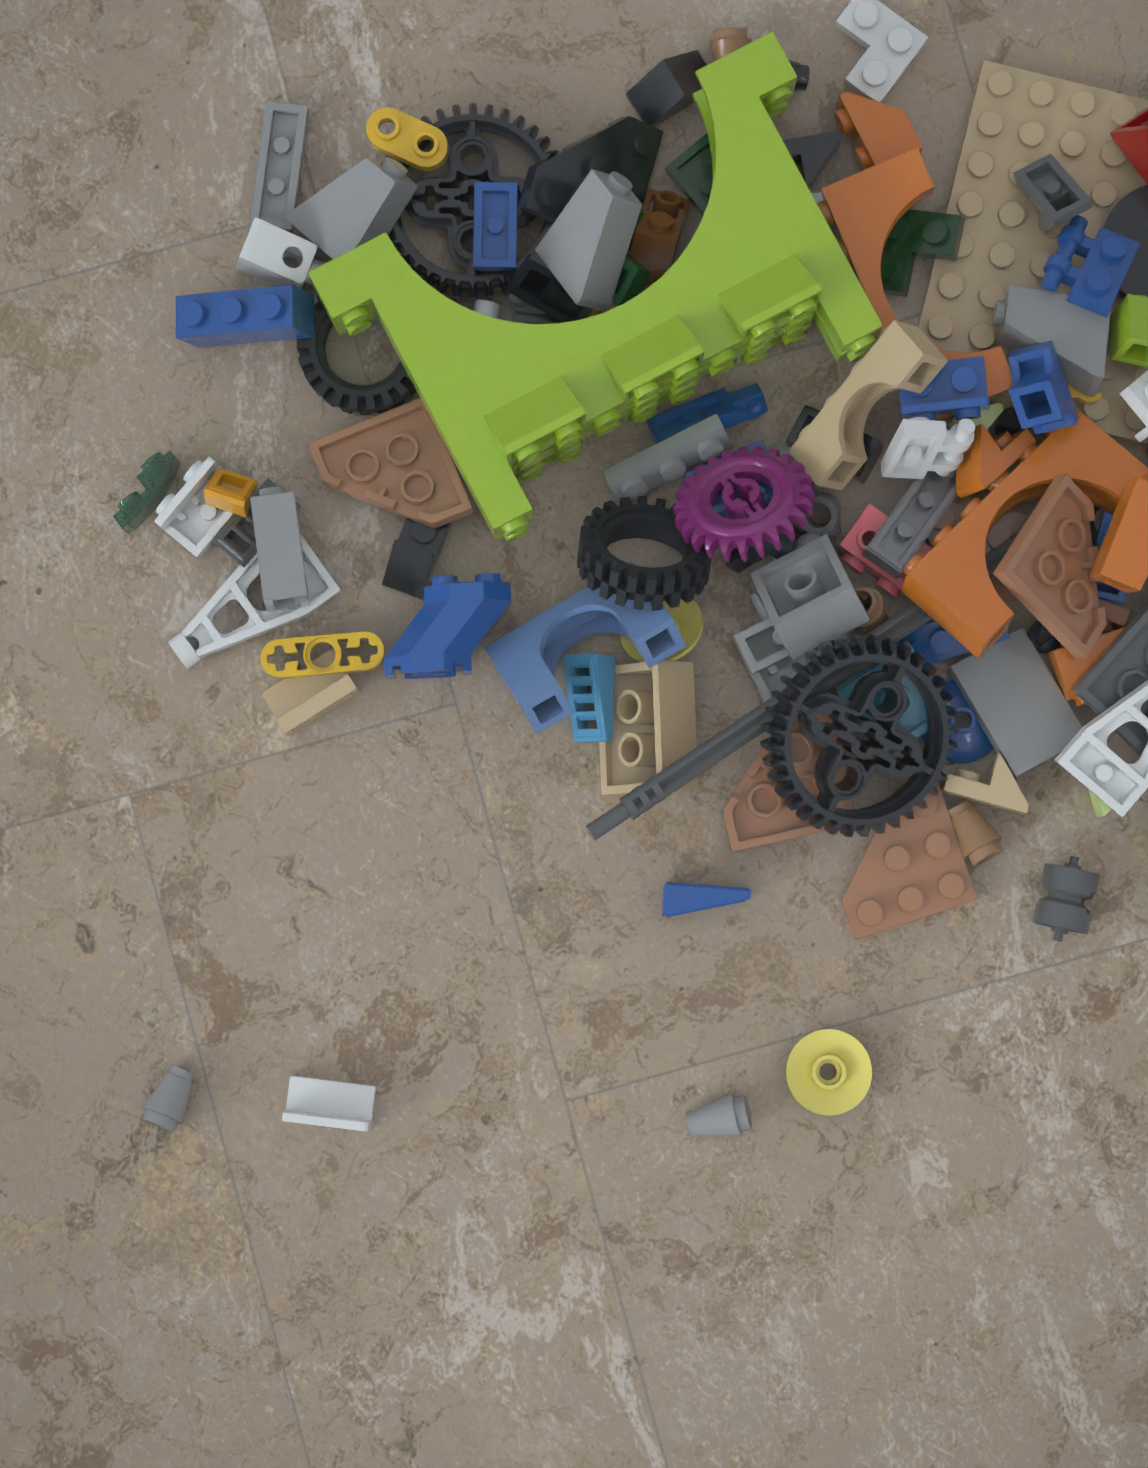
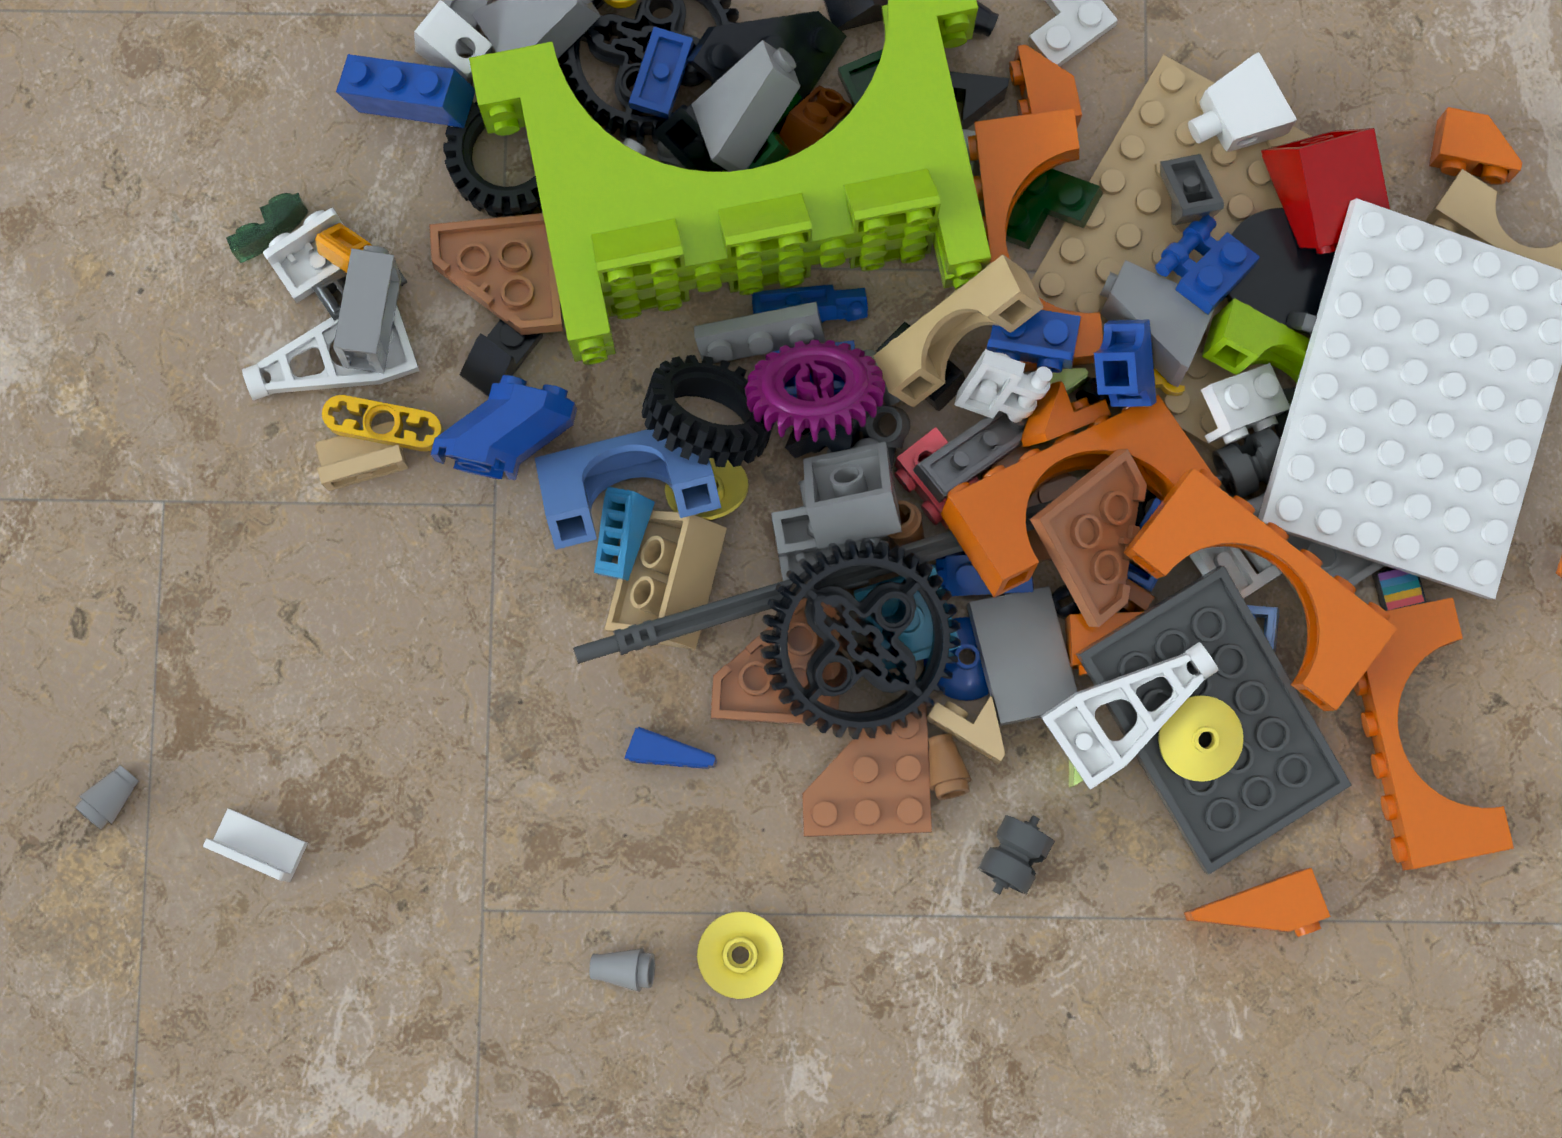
camera: 15 degrees right, 5 degrees down
(1081, 95) = (1243, 108): none -> white torso

